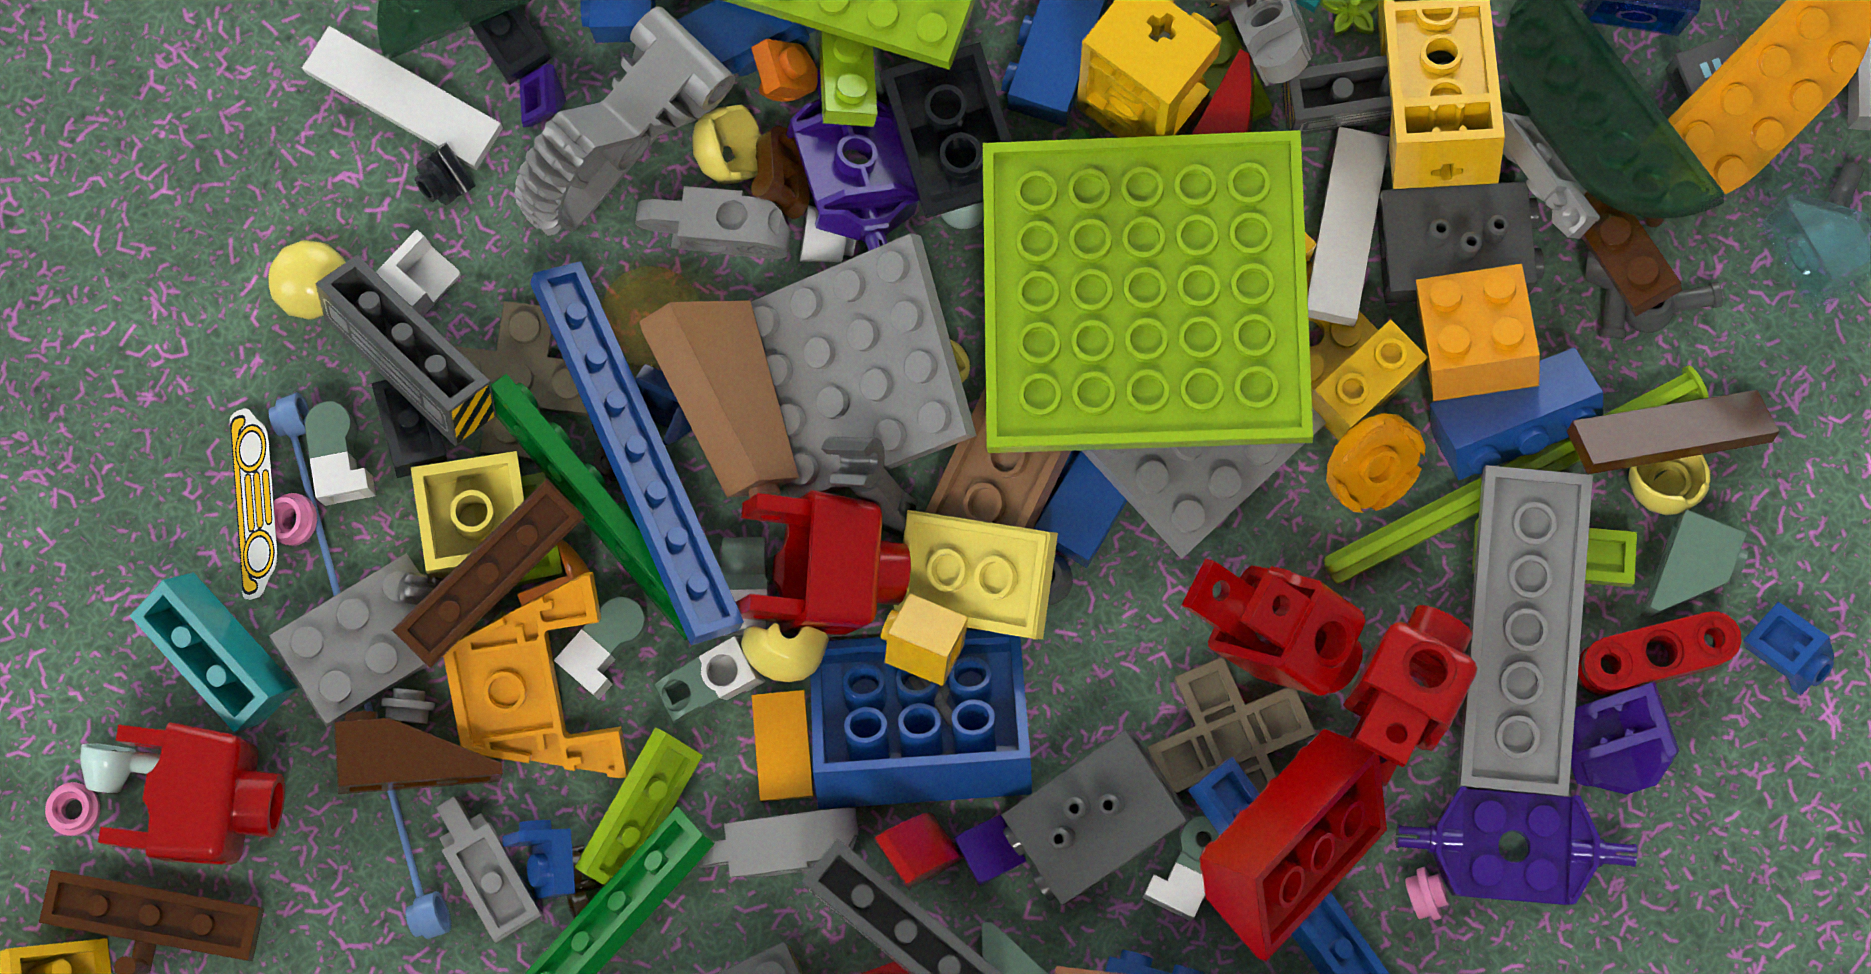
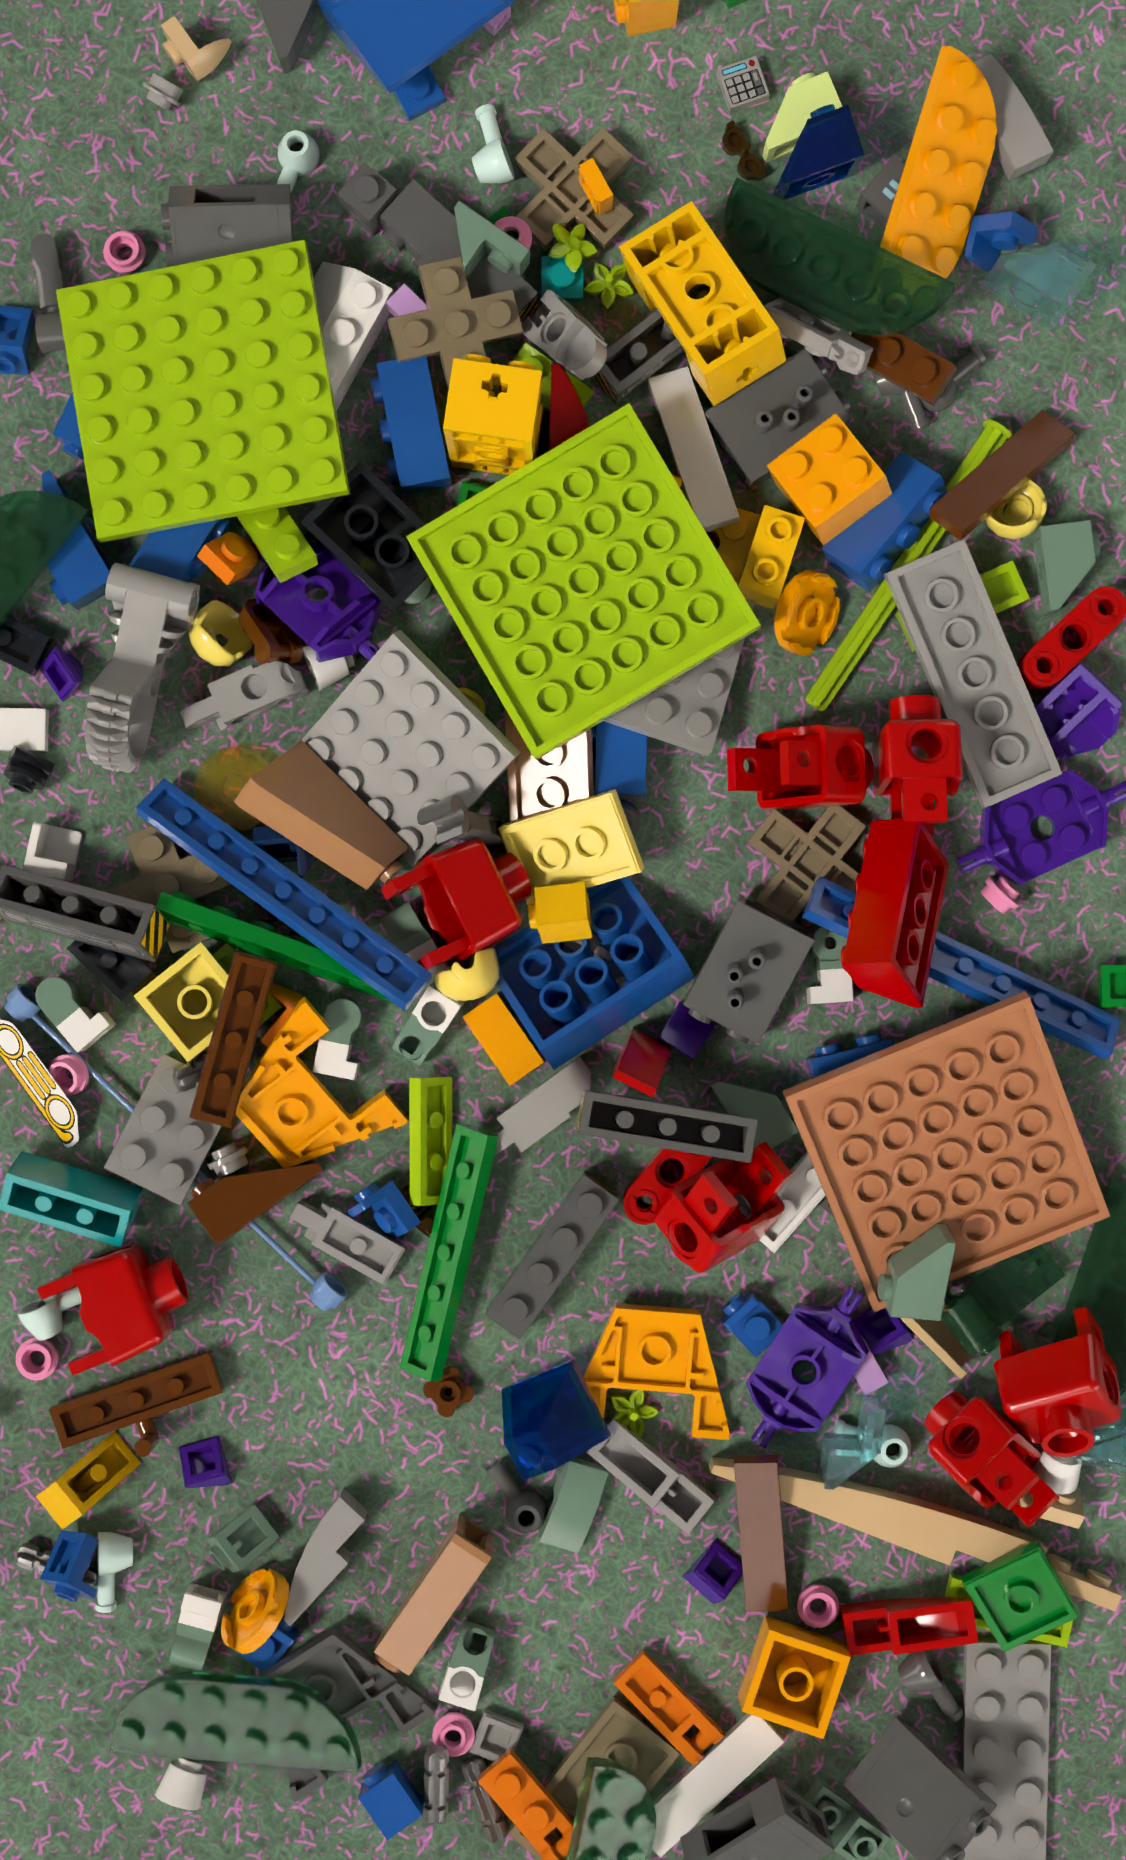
camera: 30 degrees left, 10 degrees up
(1804, 173) = (995, 233): none -> blue bracket

